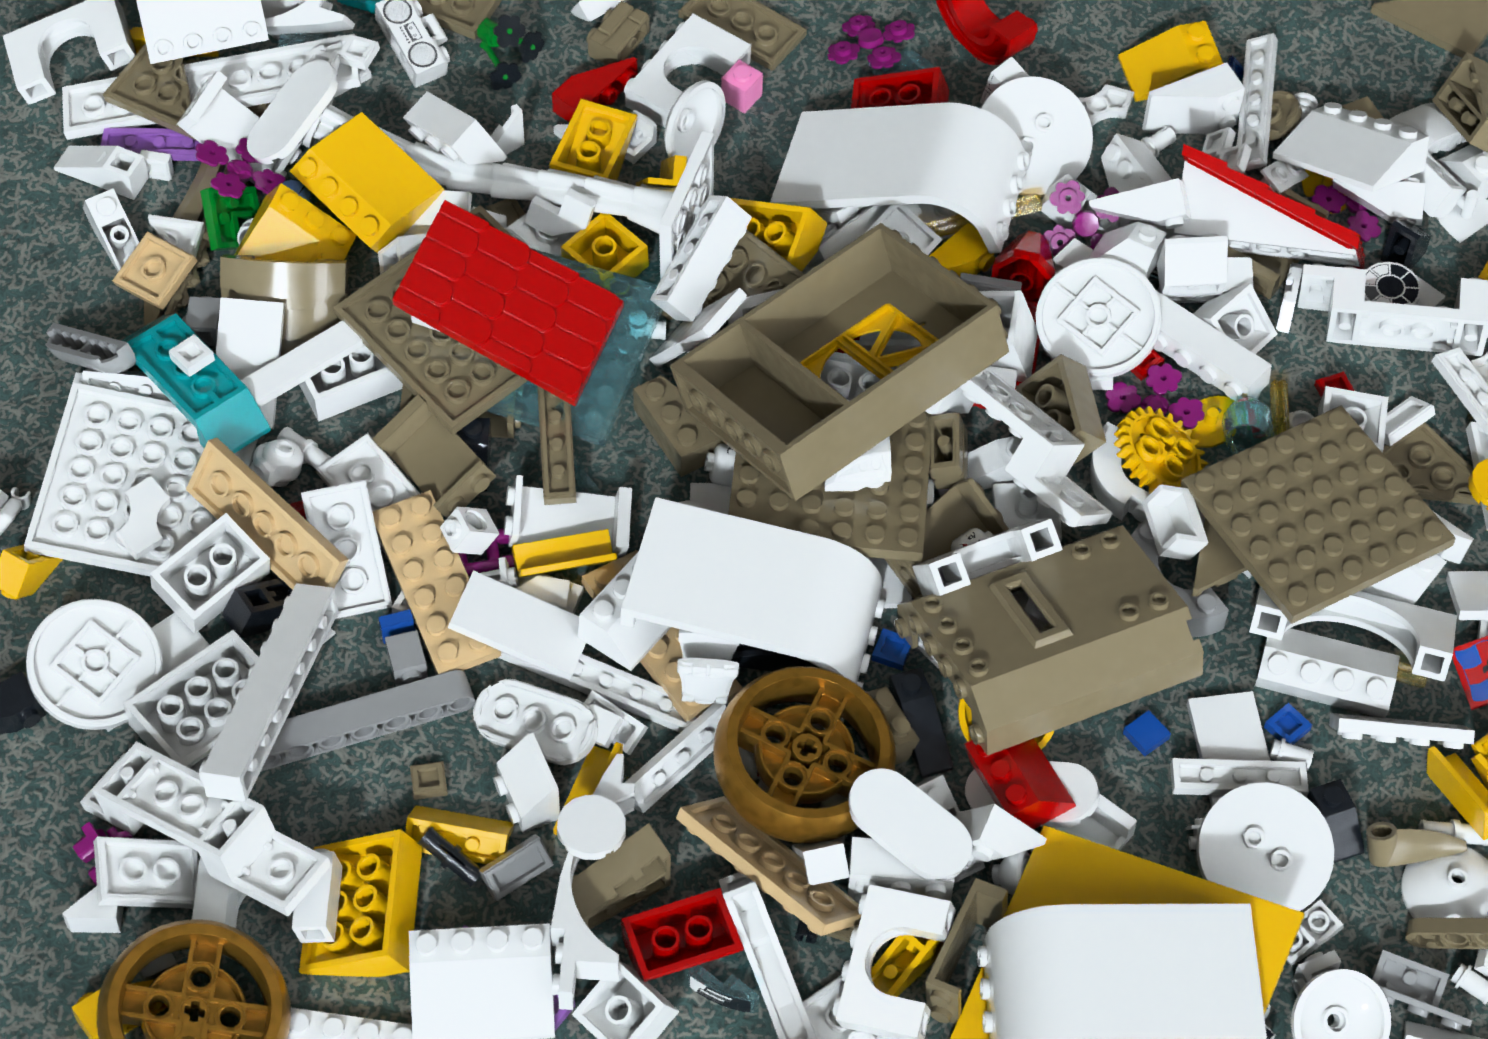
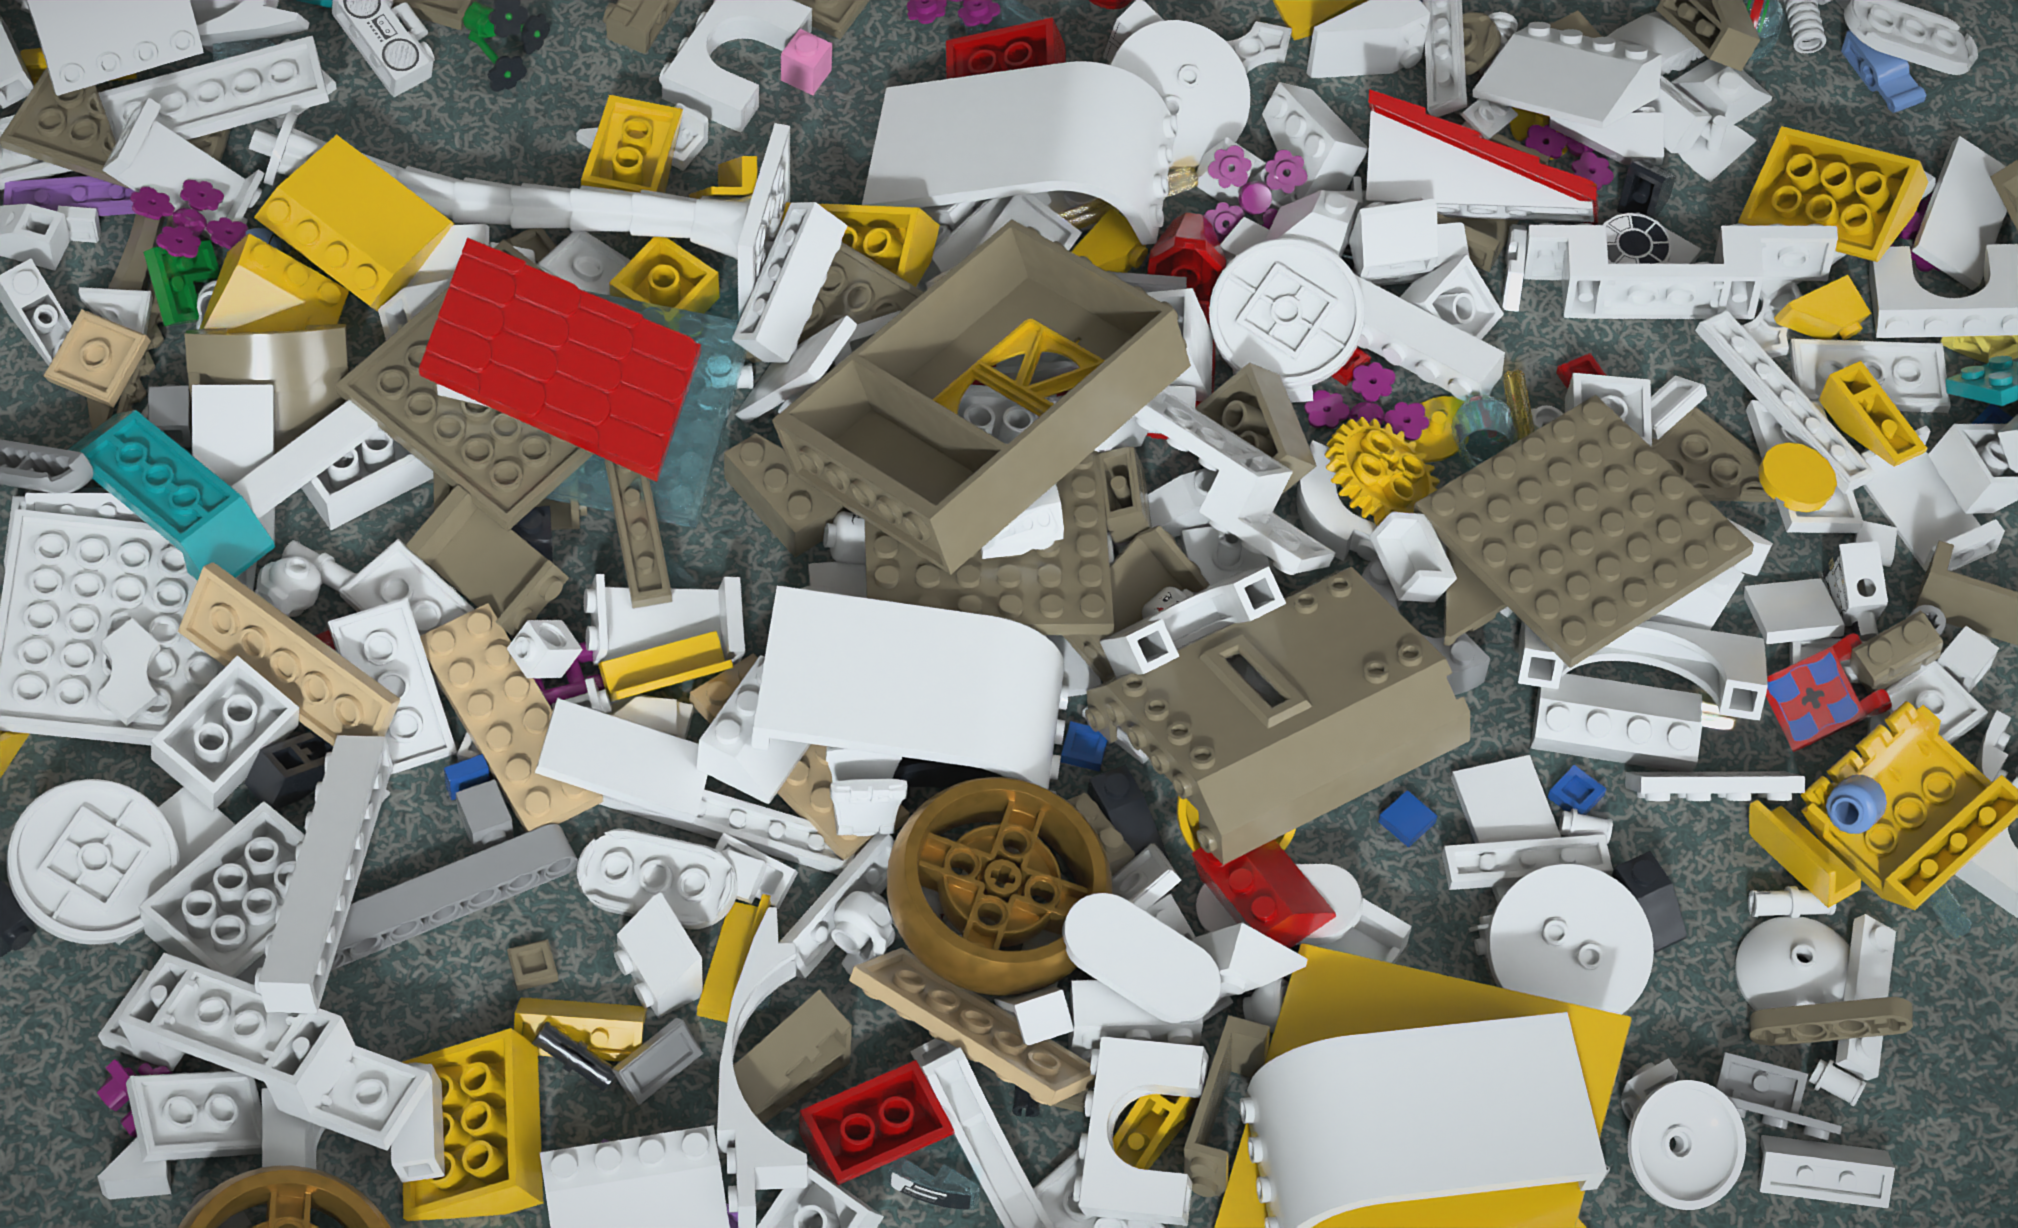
camera: 10 degrees left, 0 degrees up
(191, 355) = (165, 461): white plate -> none
(293, 111) = (249, 141): white tile -> none
(350, 51) = (311, 58): white tile -> none
(452, 132) = (453, 149): white slope -> none
(512, 133) = (520, 151): white tile -> none
(572, 216) = (596, 251): white tile -> none
(591, 827) = (750, 1001): white tile -> none
(596, 85) = (622, 76): red slope -> none
(693, 777) = (862, 928): none -> white head
(695, 110) = (753, 107): white dish -> none
(923, 760) = (1145, 878): none -> white tile
(1154, 204) = (1340, 167): white slope -> none
(1160, 140) = (1331, 85): white pin -> none
(1220, 146) = (1406, 86): white tile -> none
(1316, 928) = (1645, 1034): white slope -> none
(1406, 846) = (1725, 927): dark tan piece -> none

